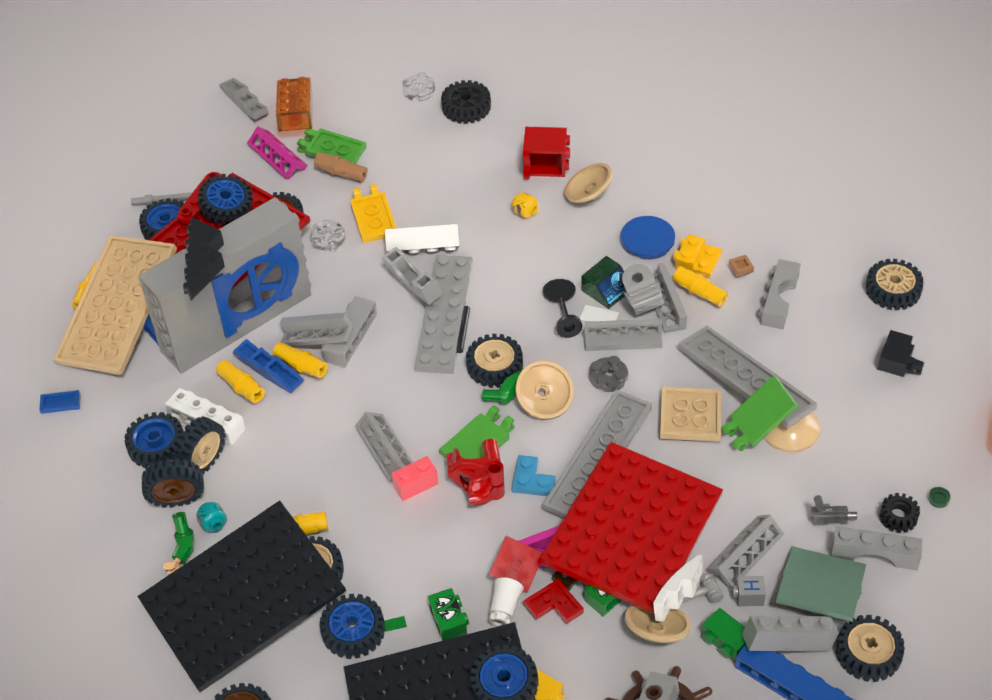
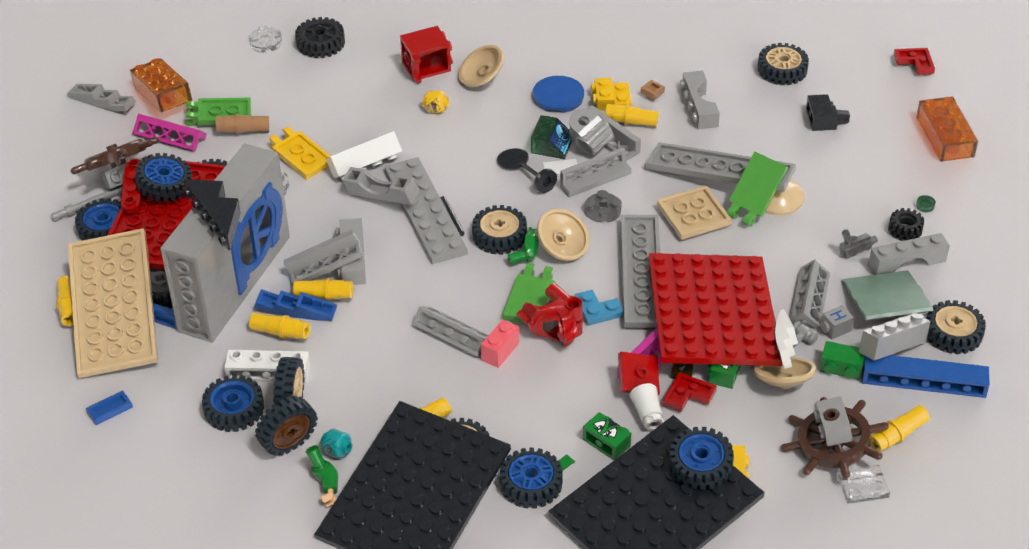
camera: 30 degrees left, 5 degrees down
(205, 163) = (115, 157): none -> reddish brown brick

